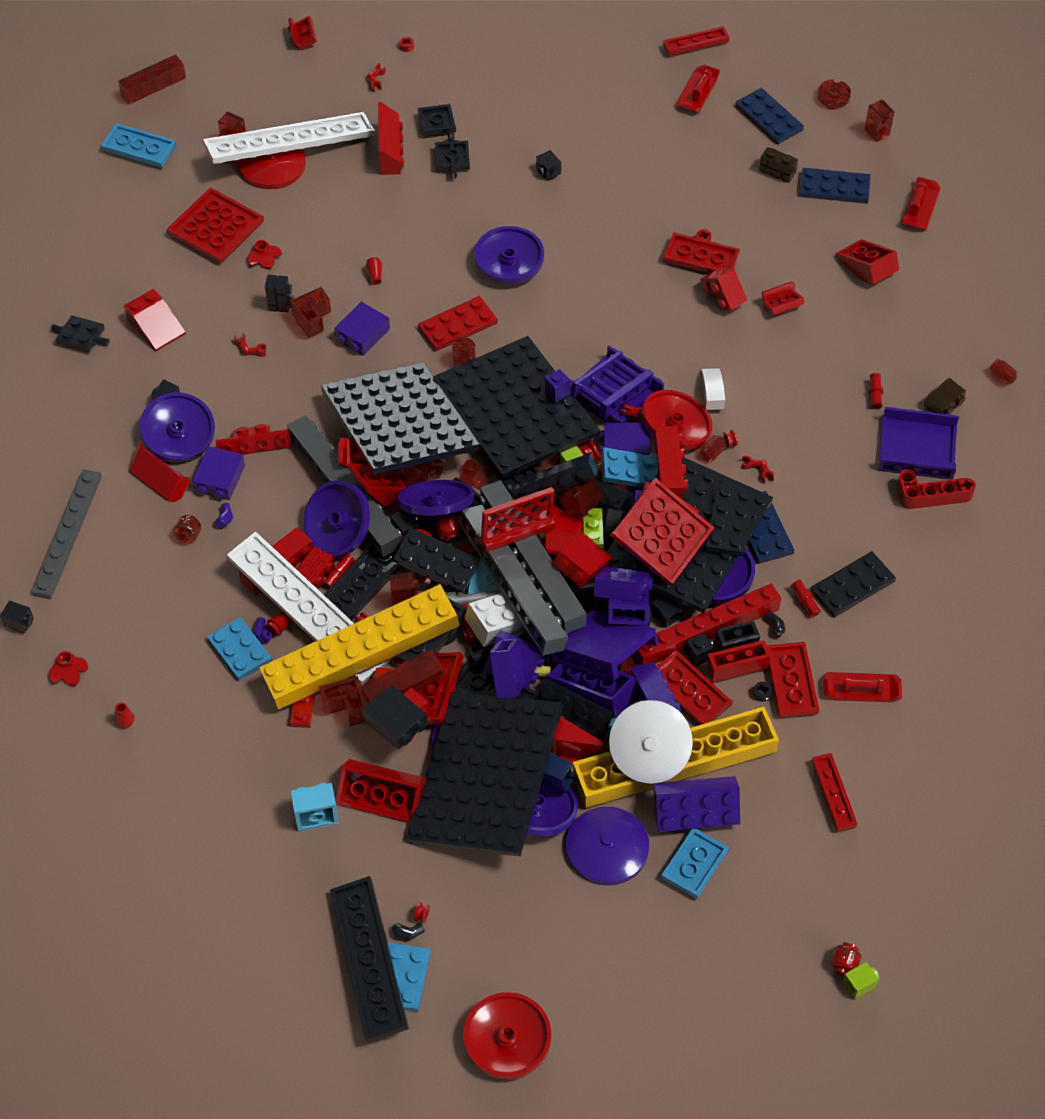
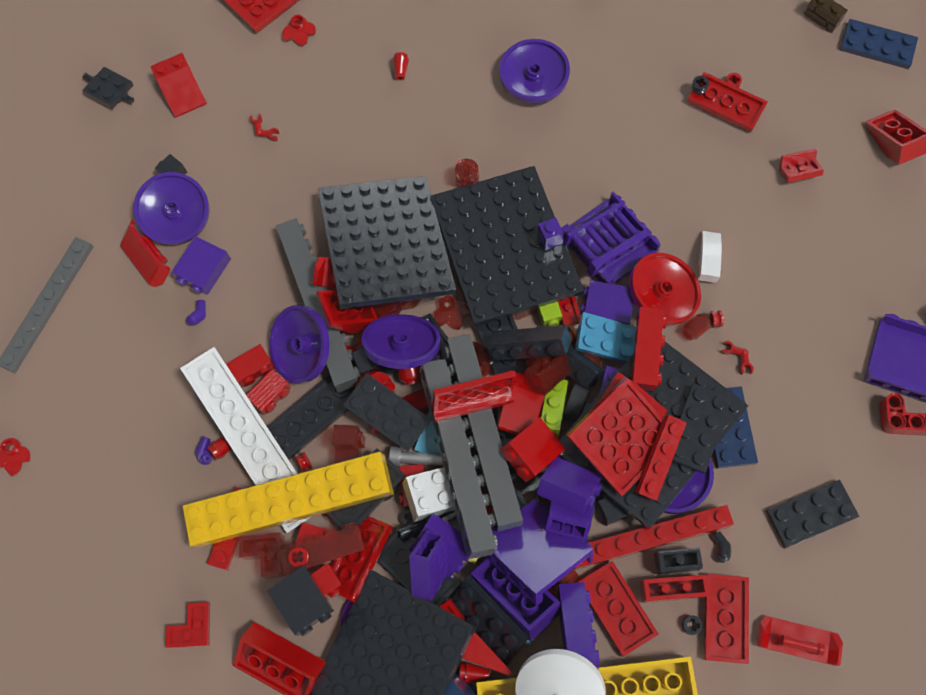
camera: 15 degrees right, 15 degrees up
(123, 715) = (48, 524): red cone -> none
(187, 529) = (157, 323): clear red head -> none
(239, 648) = (178, 466): dark azure plate -> none
(255, 440) = (243, 234): red bracket -> none
(278, 293) = (300, 77): black brick -> none
(293, 777) = (195, 632): none -> red plate
(309, 310) = (327, 98): clear red brick -> none
(314, 806) = (200, 674): medium azure brick -> none
(338, 570) = (292, 398): red pin -> none
(362, 328) = (373, 128): dark purple brick -> none
(381, 679) = (297, 550): none -> red bush
(457, 323) = (469, 137): red plate -> none
(631, 411) = (620, 271): red pin -> none
(672, 247) = (695, 86): none -> black bush
(698, 649) = (637, 564): black brick -> none
(700, 544) = (661, 457): none -> red plate
(726, 287) = (745, 143): red brick -> none
(805, 598) = (759, 523): red pin -> none
(875, 390) = (878, 289): red pin -> none

